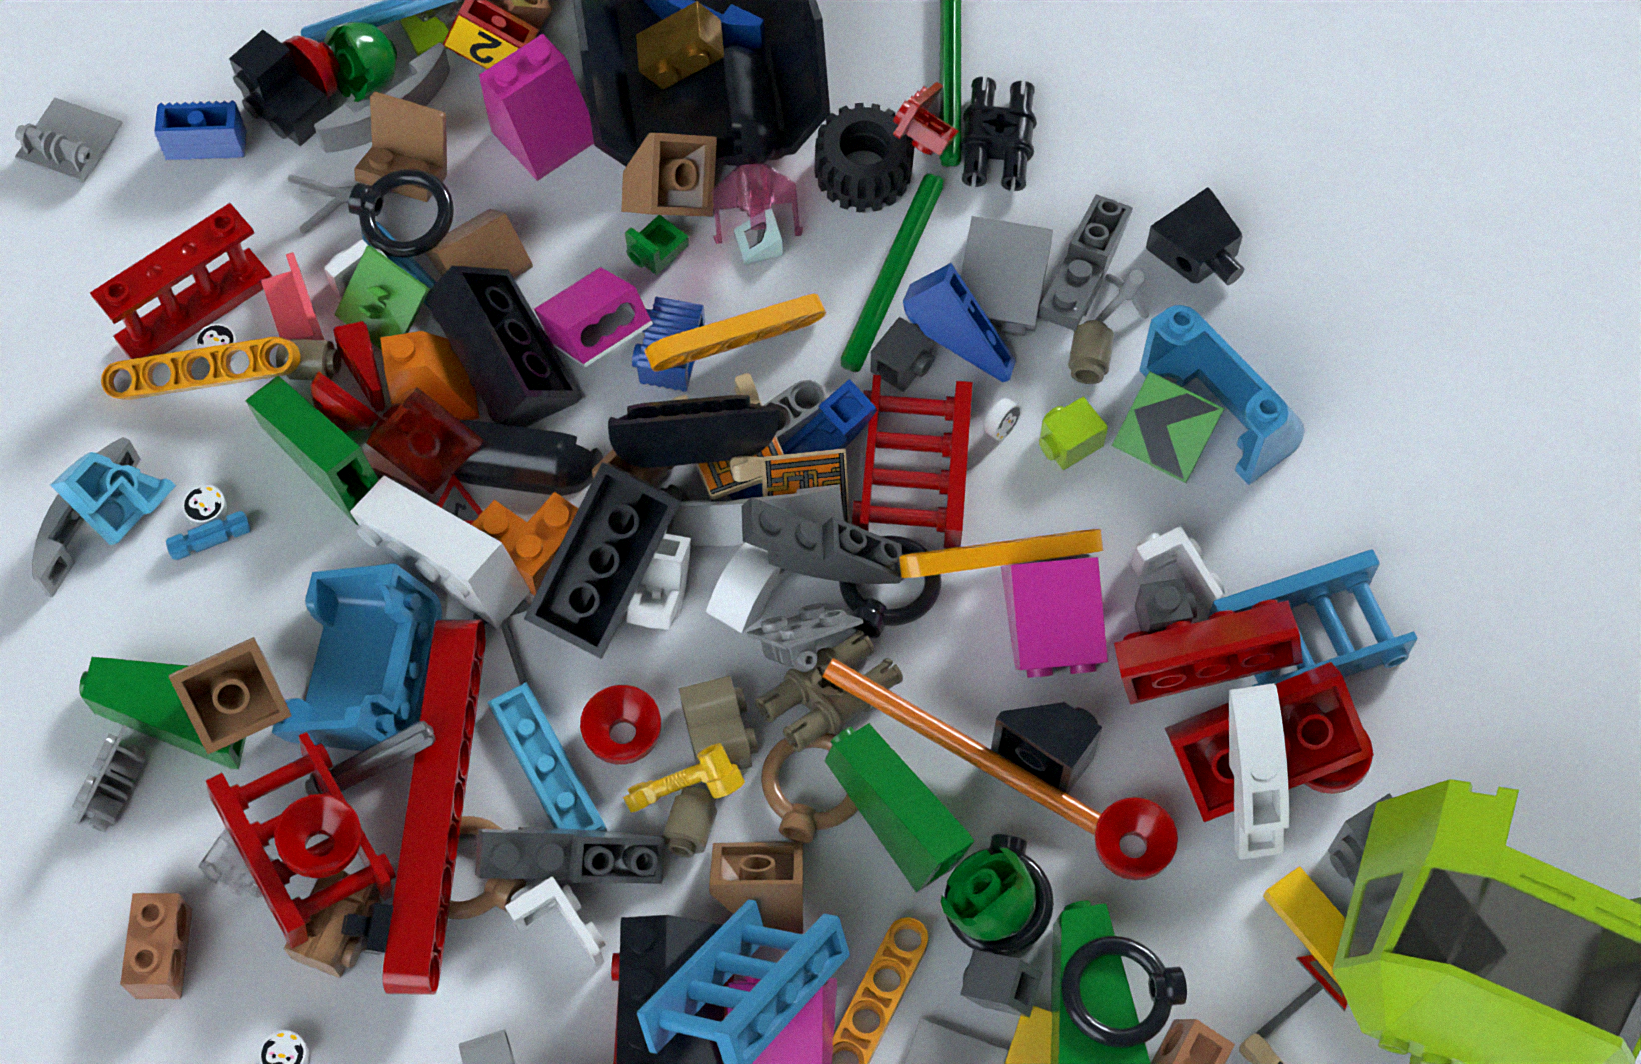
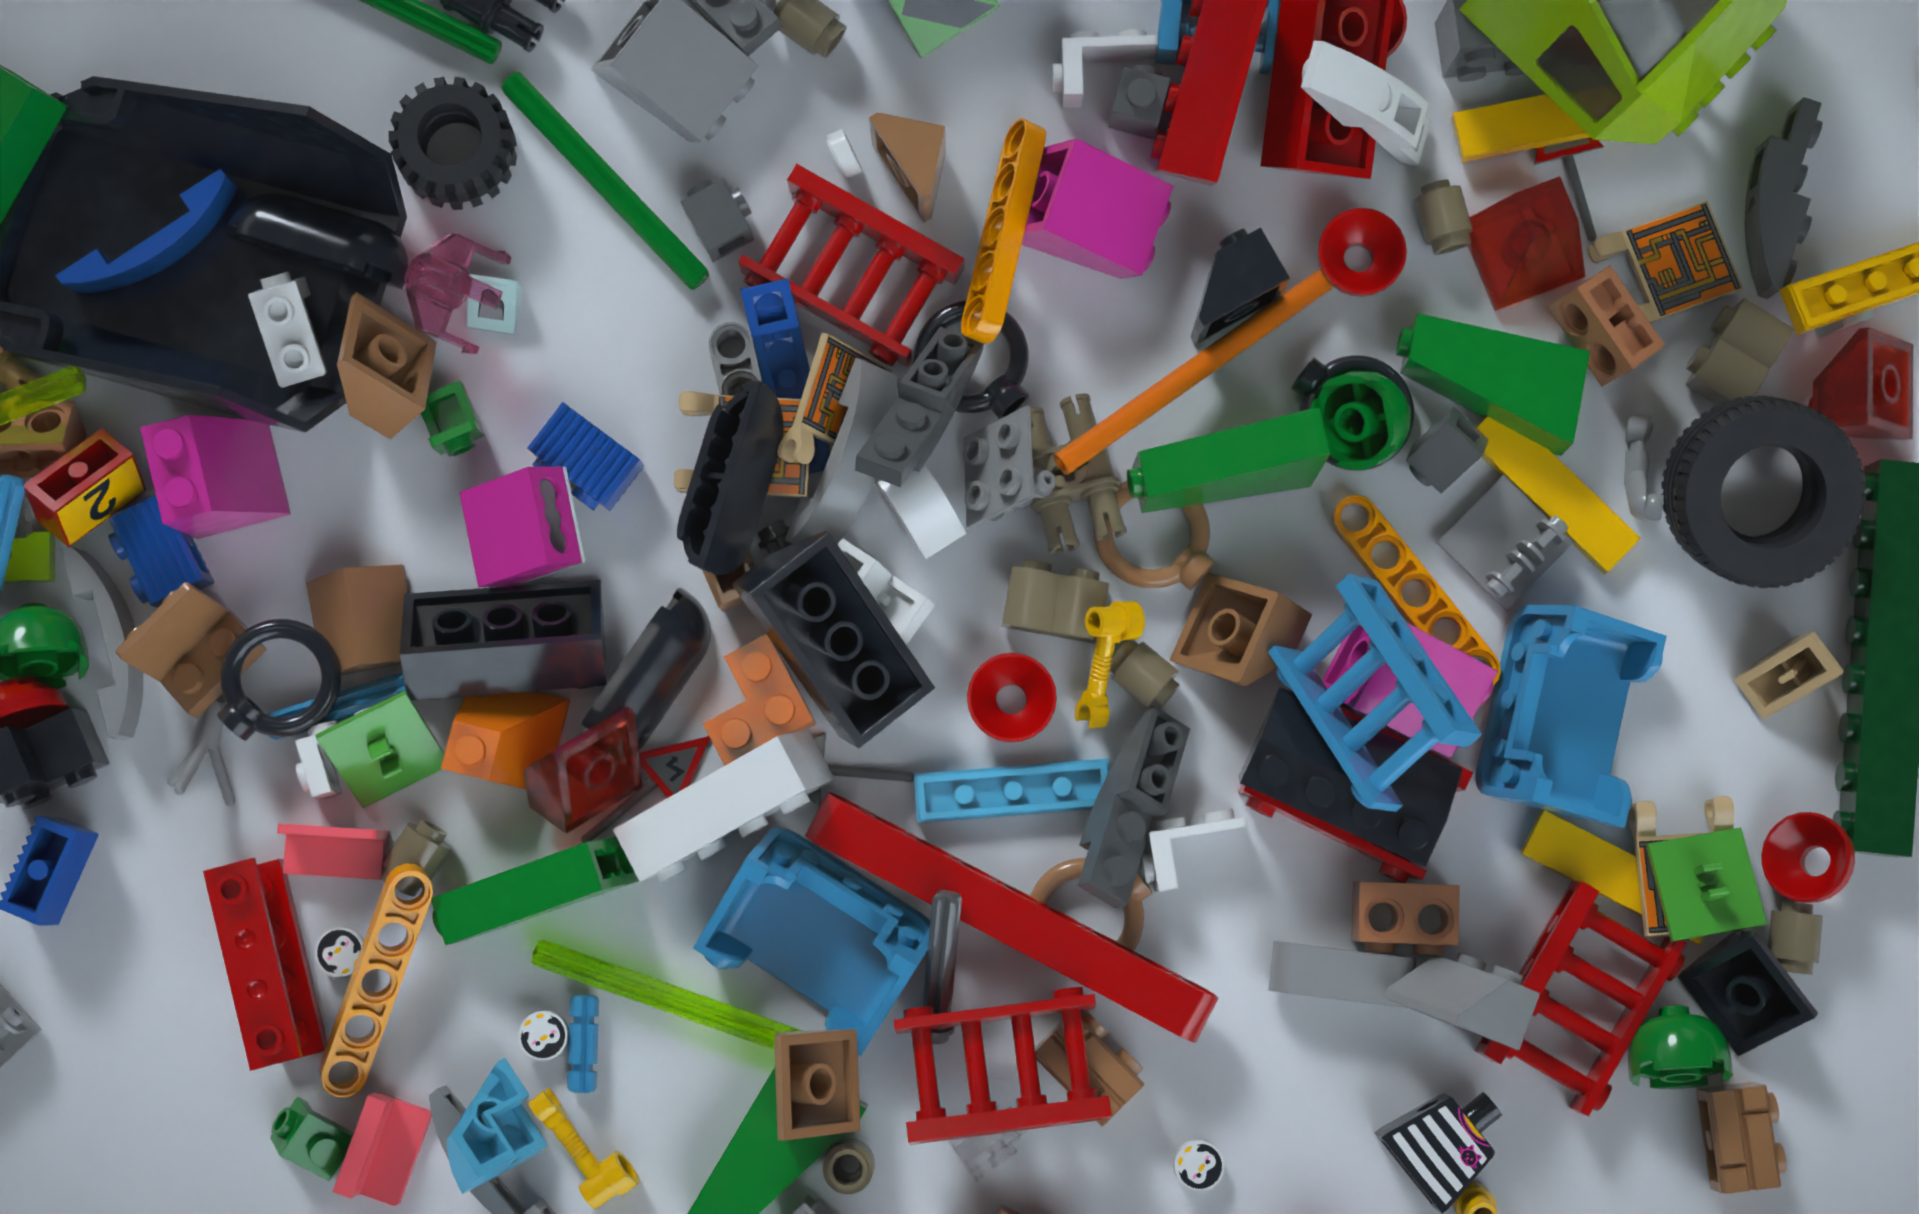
camera: 65 degrees left, 20 degrees up
(61, 382) = (310, 1139): none -> green bracket
(70, 428) = (383, 1149): none -> coral panel
(105, 596) = (602, 1178): none -> yellow brick
(177, 765) = (844, 1181): none -> dark tan brick
(269, 567) = (657, 994): none -> clear neon green axle
(318, 816) = (1031, 1020): red piece -> none
(340, 406) = (499, 843): red piece -> none
(358, 355) = (436, 800): red slope -> none
(373, 927) = (1126, 1030): black tile -> none
(464, 109) = (156, 553): none -> blue brick
(670, 105) = (287, 329): none -> white bracket
(680, 45) = (209, 278): pearl gold brick -> none
(734, 332) = (618, 383): light orange beam -> none
(925, 129) = (464, 58): red bracket -> none
(955, 320) = (718, 145): blue slope -> none
(1021, 464) = (913, 155): none -> medium nougat slope
(1072, 433) = (894, 87): lime brick -> none
(1165, 985) = (1524, 300): black piece -> none
(1204, 896) = (1443, 217): none -> dark tan brick
(1226, 975) = (1527, 244): none -> clear red slope

